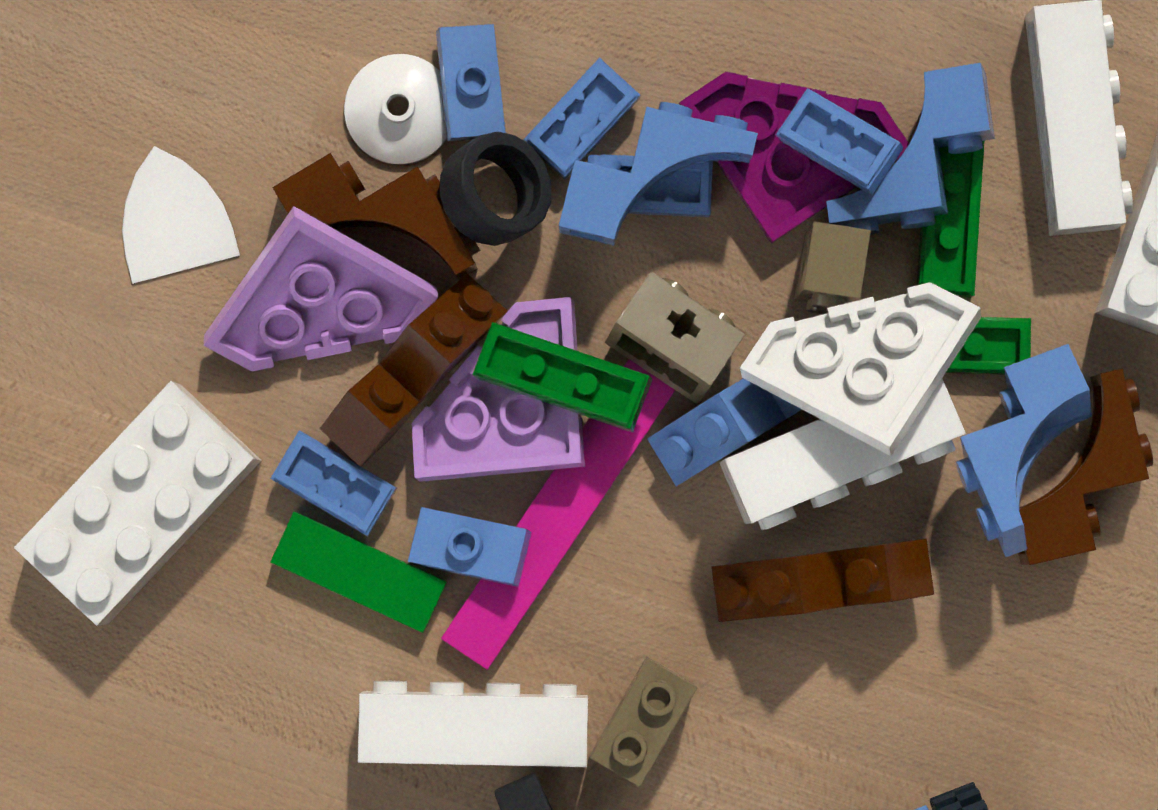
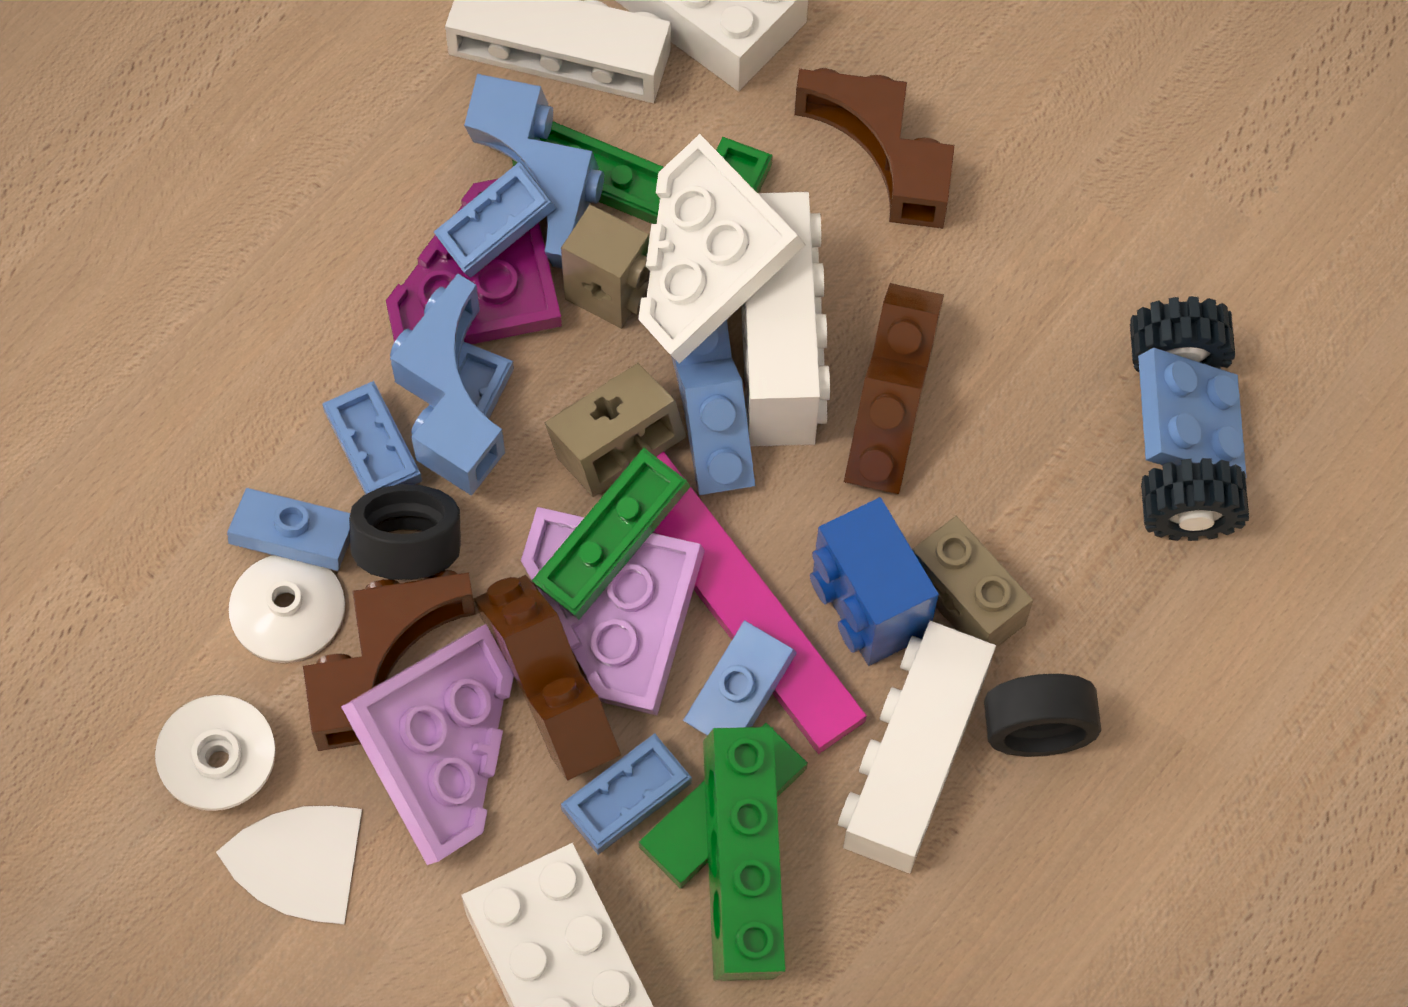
camera: 75 degrees left, 20 degrees down
(212, 88) = (209, 727): none -> white dish
(305, 610) = (743, 854): none -> green brick
(603, 634) = (872, 581): none -> blue brick
(1041, 402) = (801, 149): medium blue arch -> none

